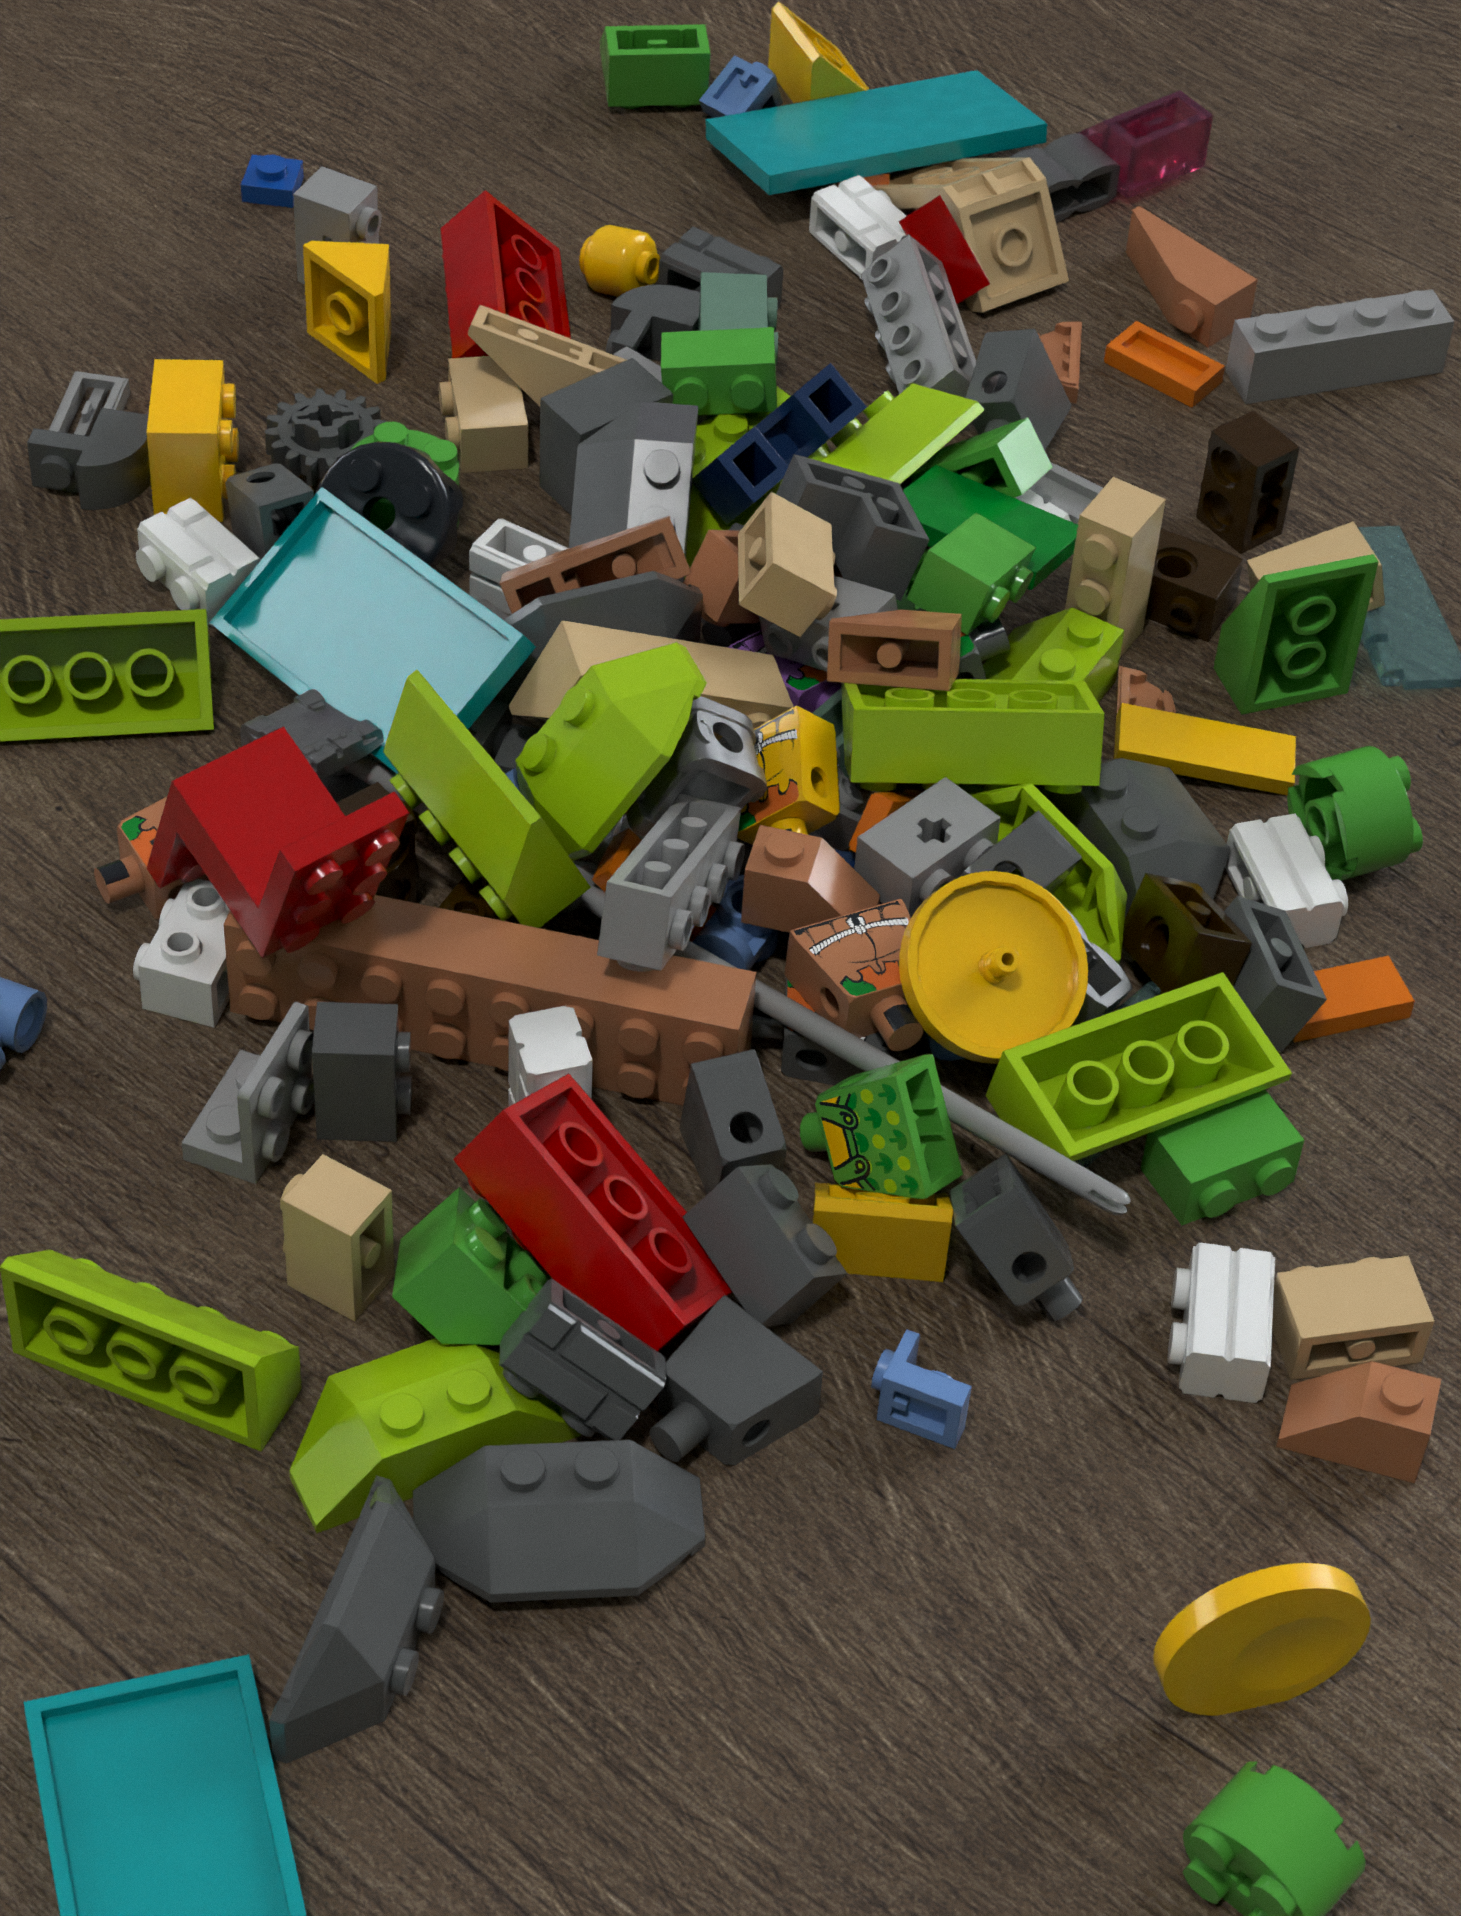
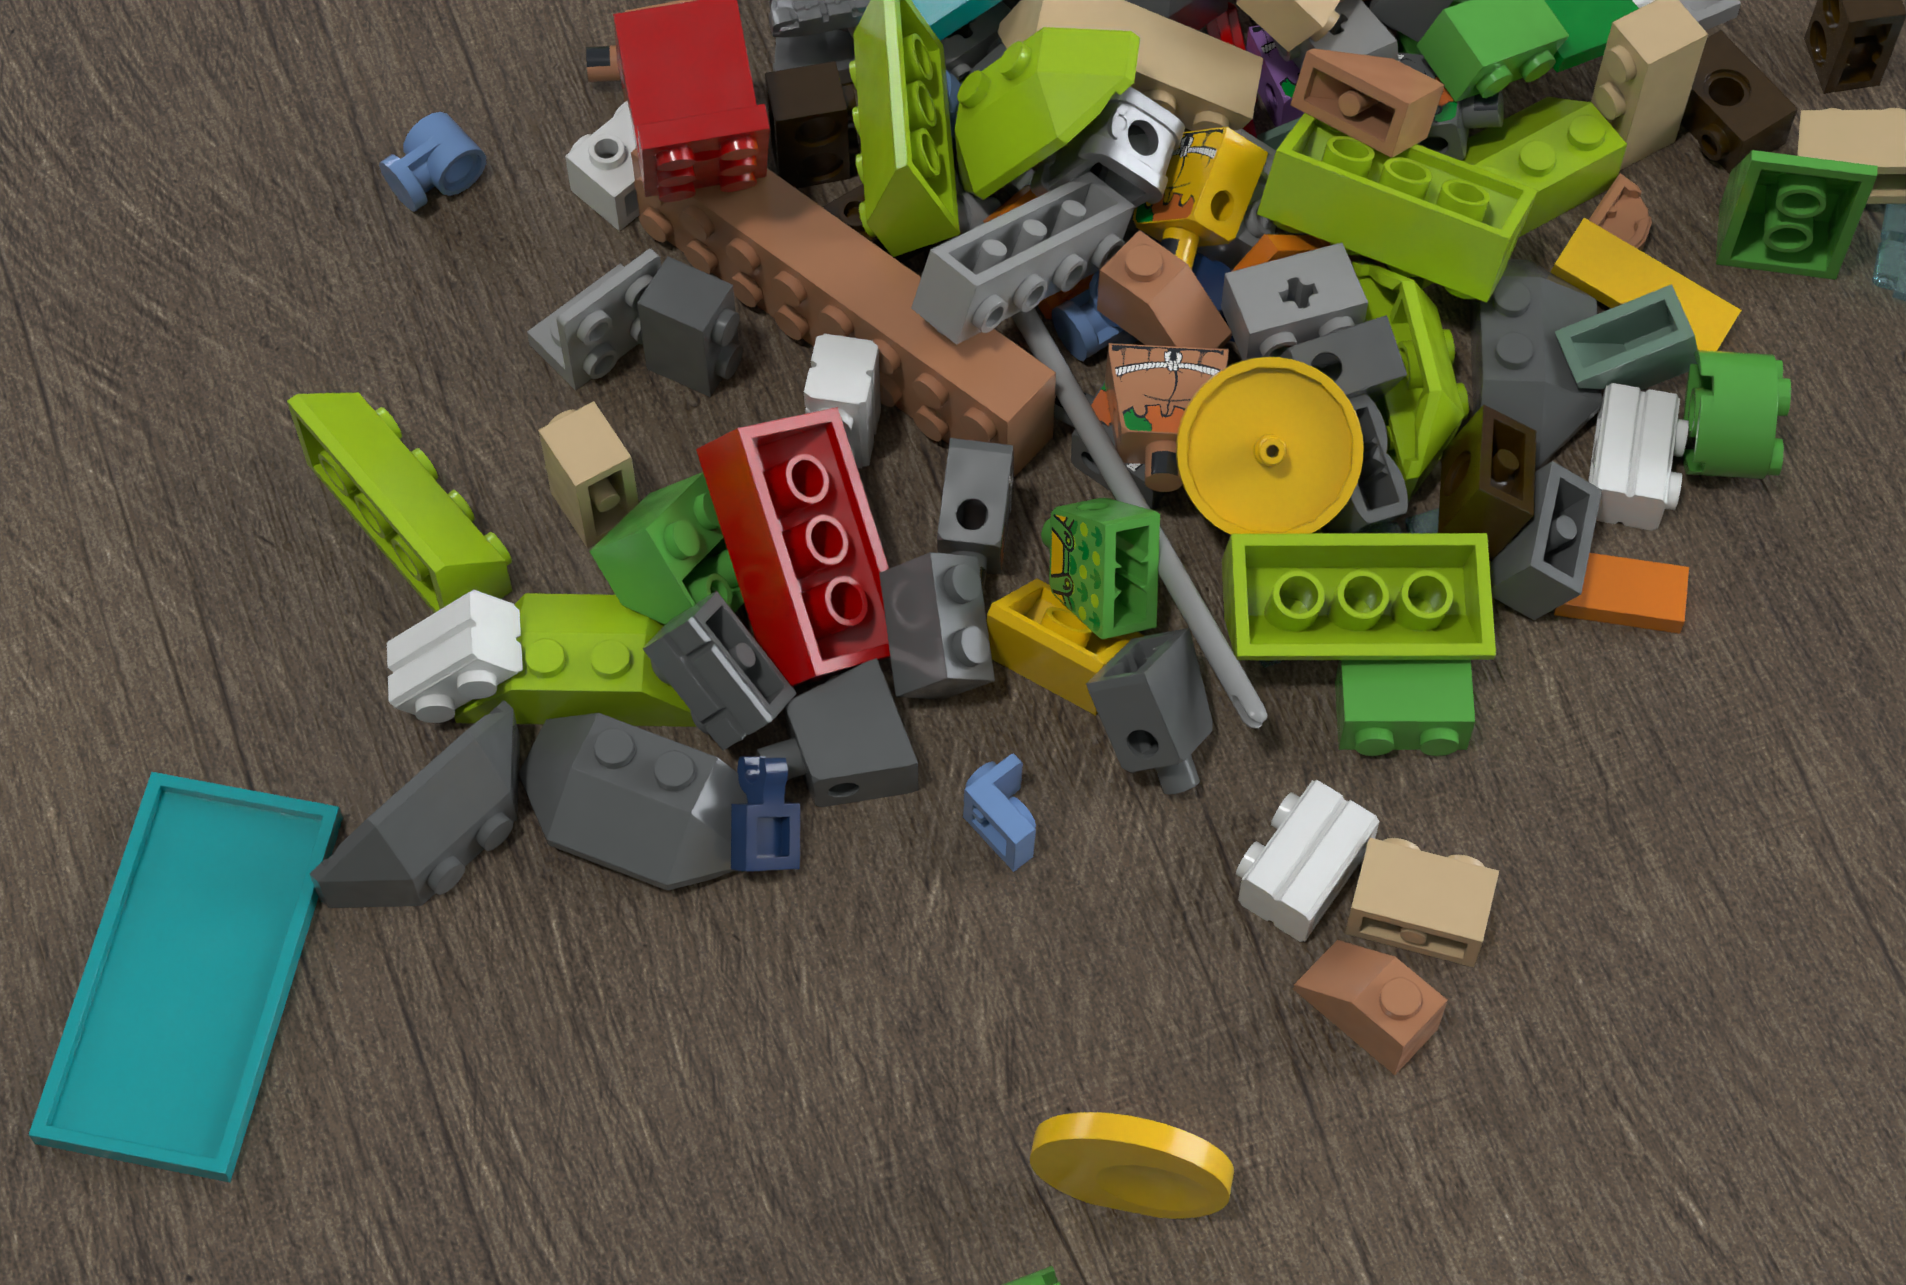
camera: 30 degrees right, 15 degrees up
(300, 1455) = (454, 656): none -> white brick
(703, 1488) = (765, 828): none -> dark blue plate
(1235, 781) = (1631, 343): none -> sand green slope

